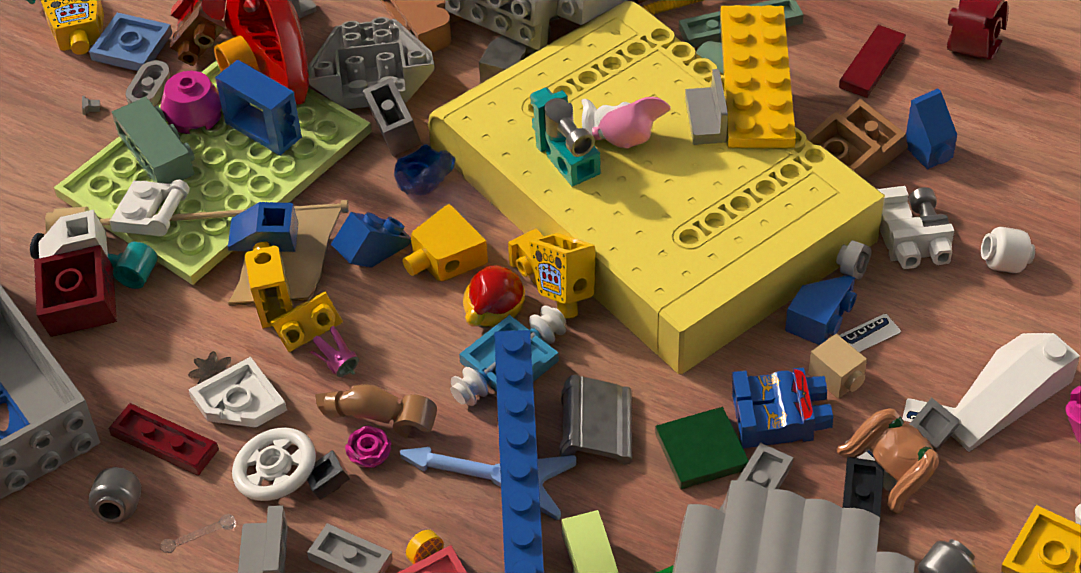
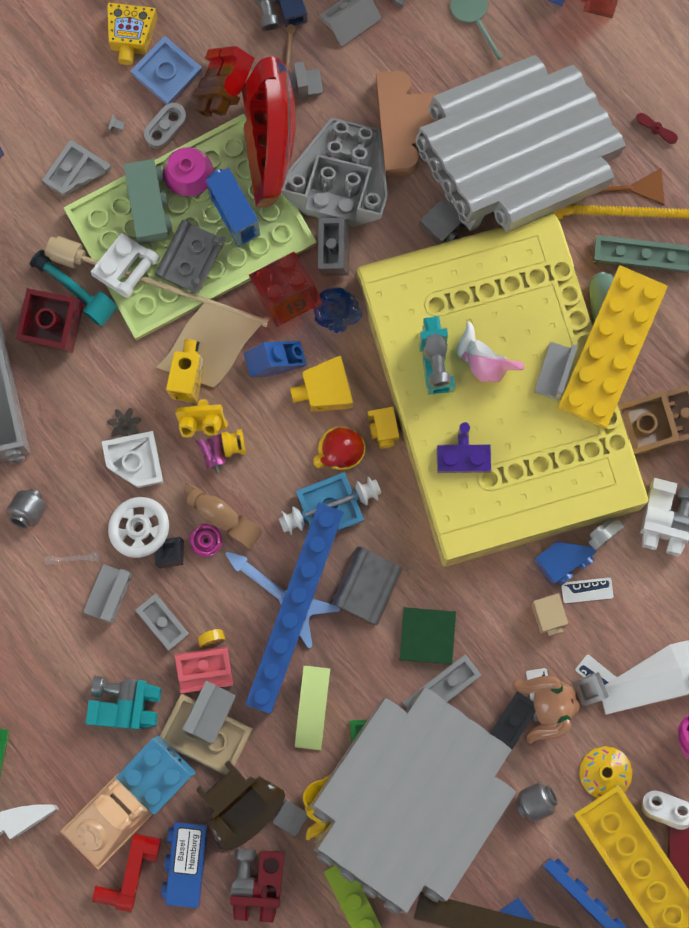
camera: 20 degrees right, 30 degrees up
(54, 154) = (74, 169): none -> light grey wing
(73, 233) = (59, 281): white slope -> none
(164, 439) = (73, 470): dark red tile -> none
(227, 178) = (190, 257): none -> flat silver piece
(233, 50) = (234, 146): light orange piece -> none
(264, 223) = (197, 326): blue slope -> none
(353, 166) = (285, 289): none -> clear red brick
(359, 335) = (231, 444): none -> yellow wheel
(563, 270) = (396, 465): yellow torso -> none
(645, 224) = (464, 457): none -> dark purple plate
(779, 407) = (501, 626): blue hips -> none
(996, 517) = (593, 765): none -> yellow dish

